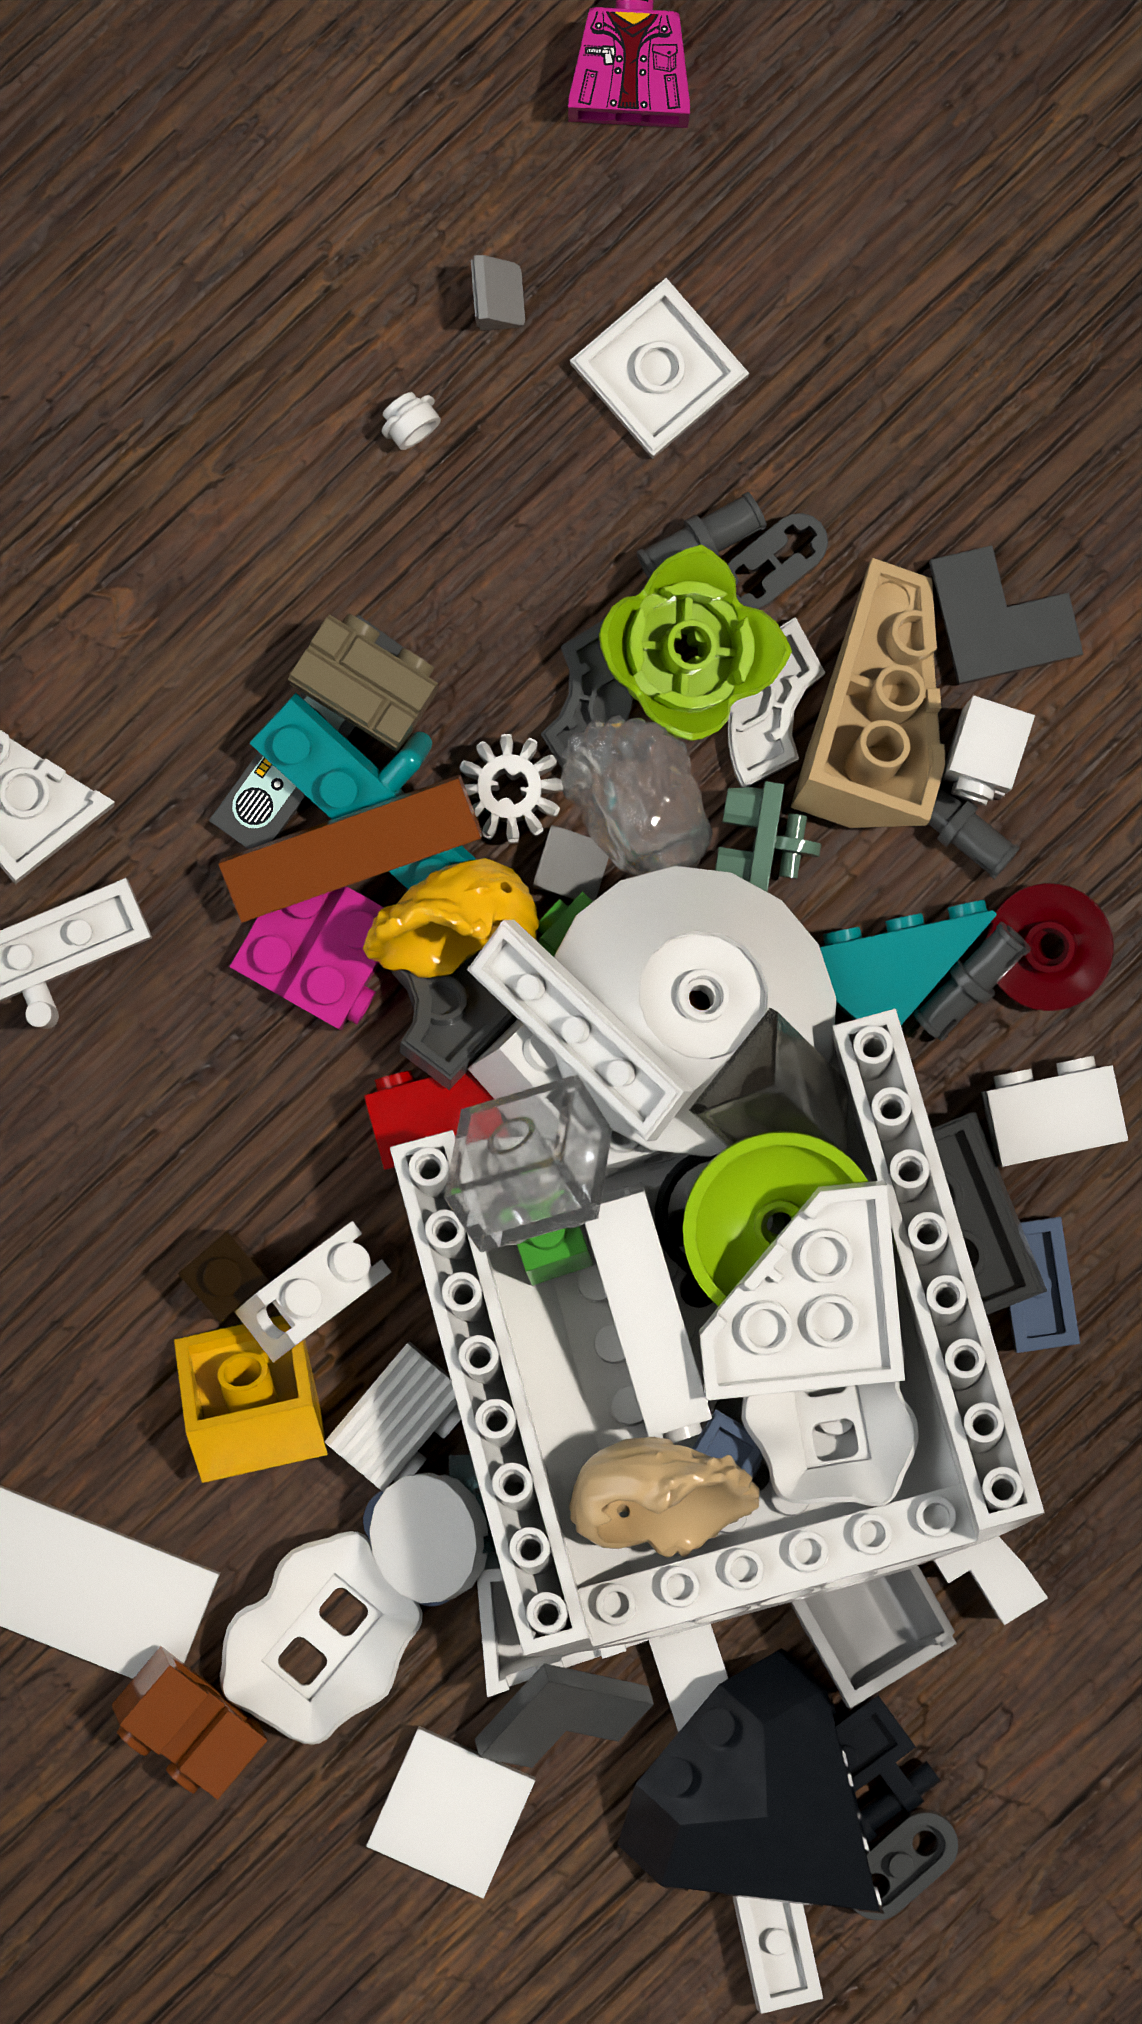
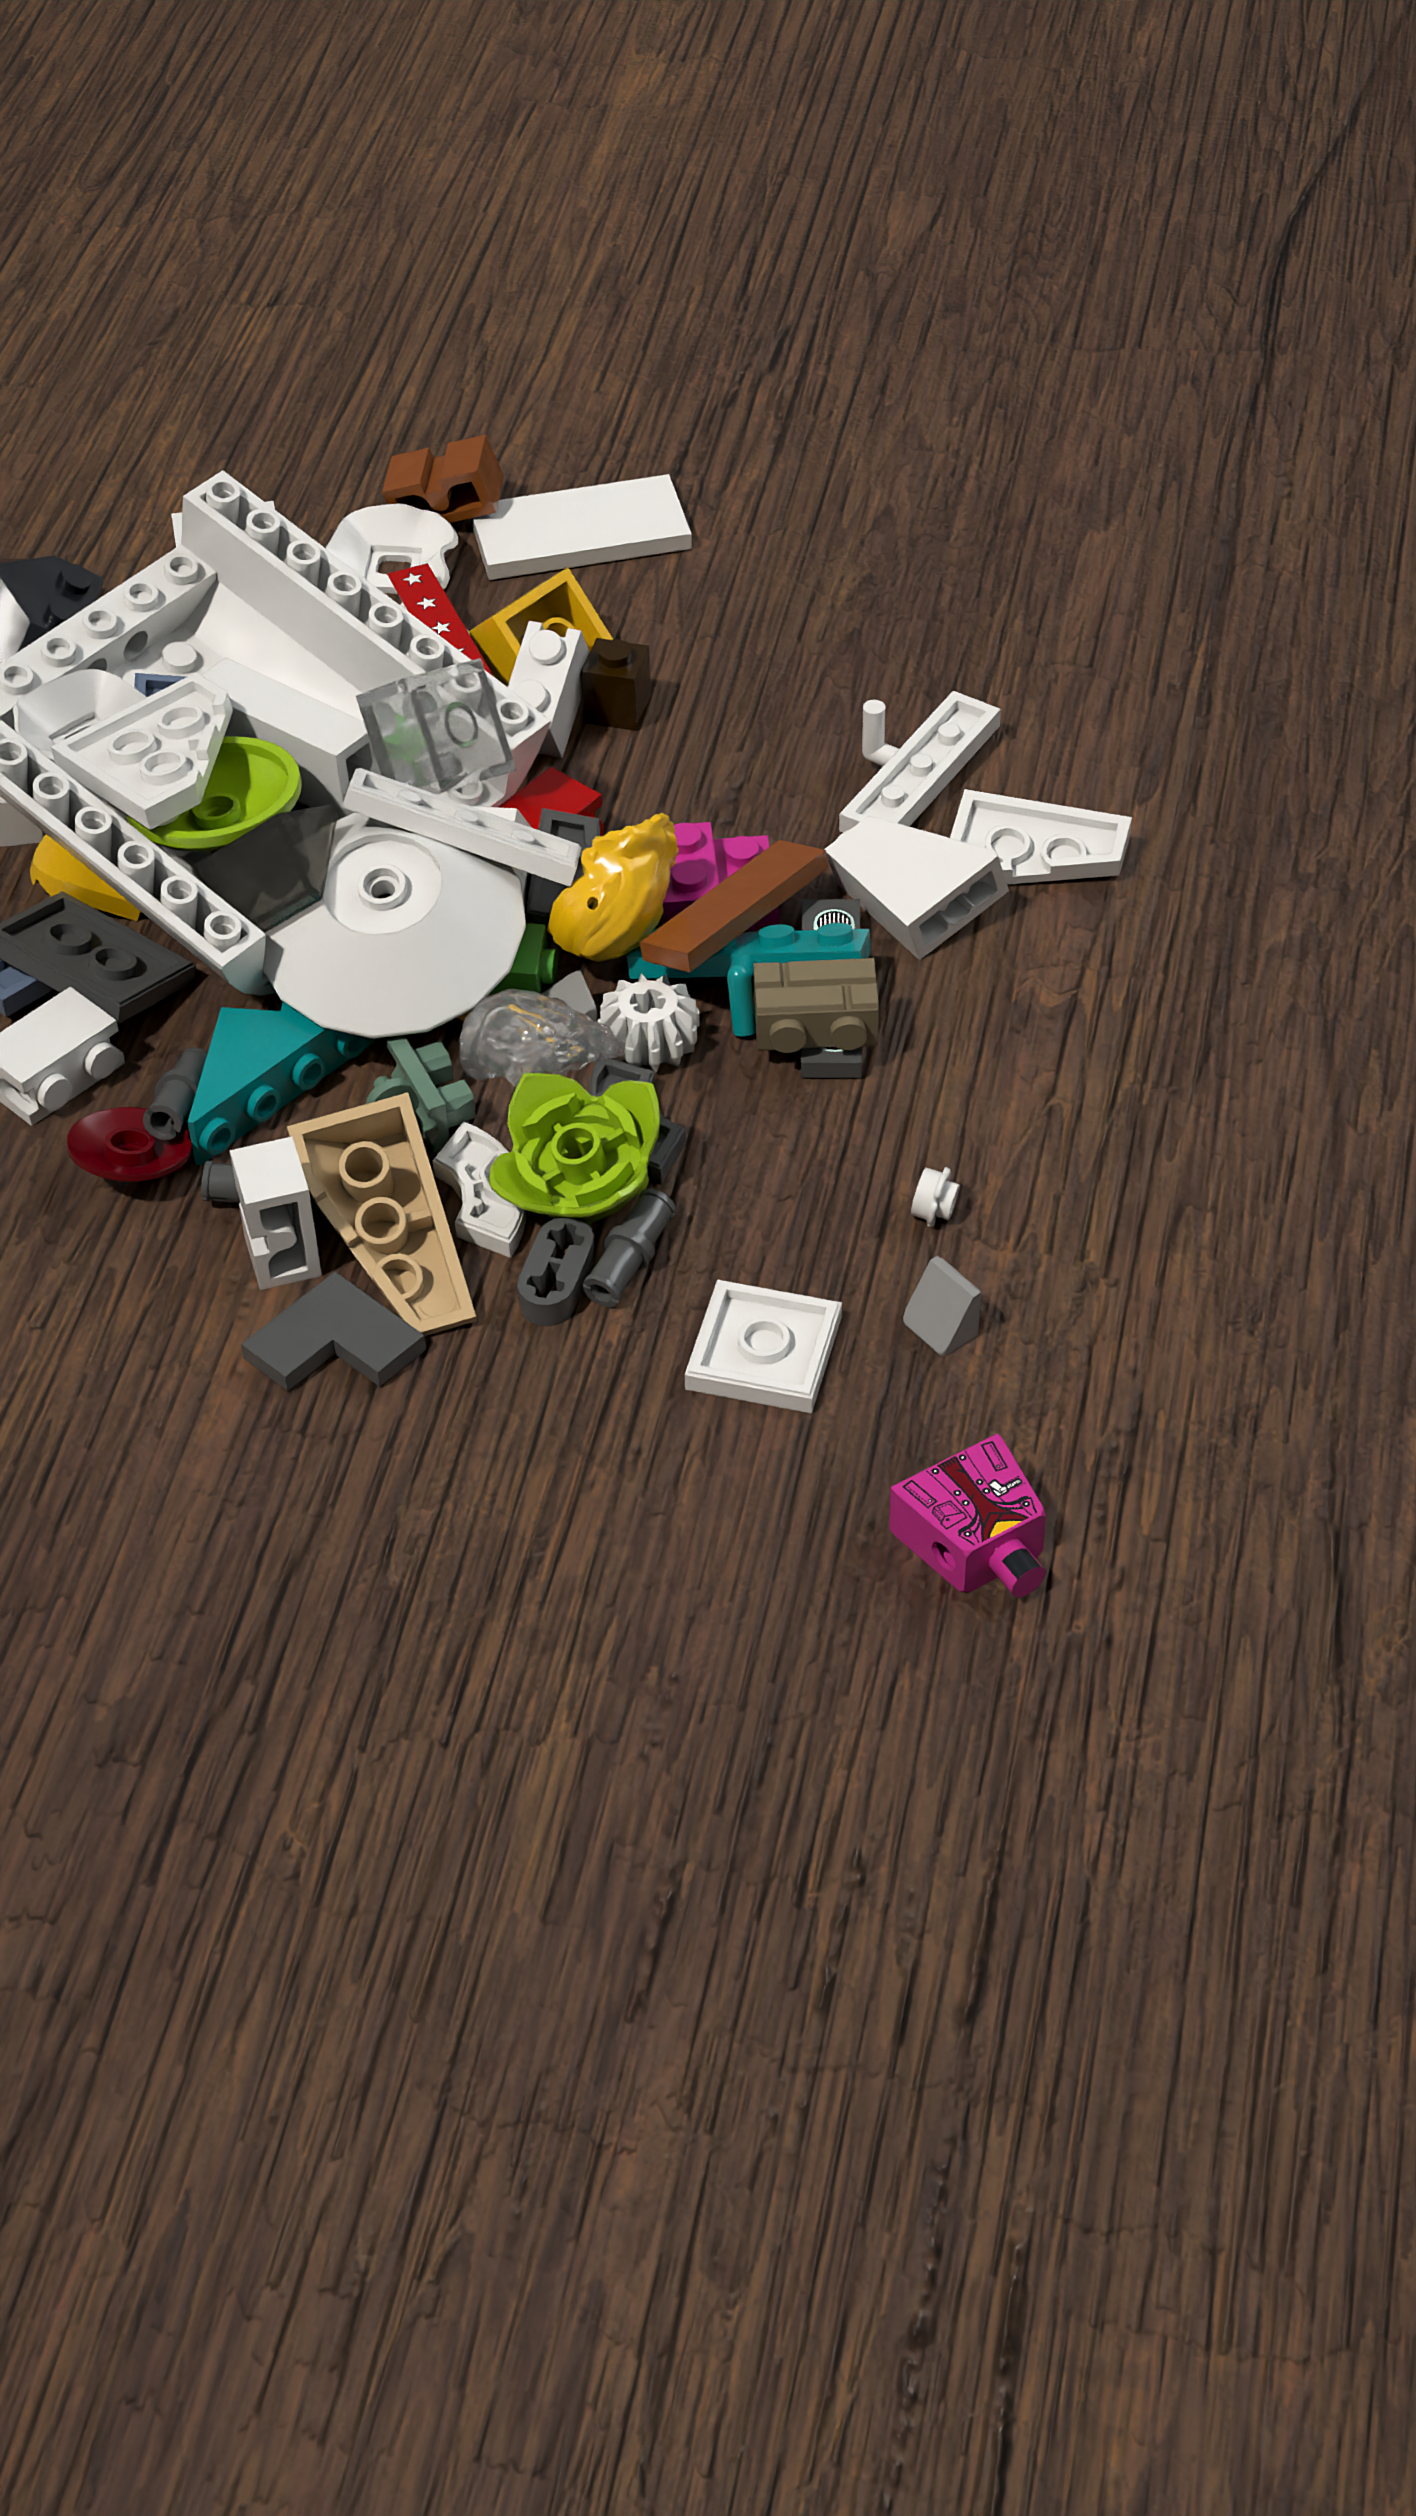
camera: 145 degrees right, 40 degrees down
(157, 793) = (915, 880): none -> white slope
(353, 1458) = (429, 603): none -> red sticker
(668, 1489) = (194, 627): tan piece -> none

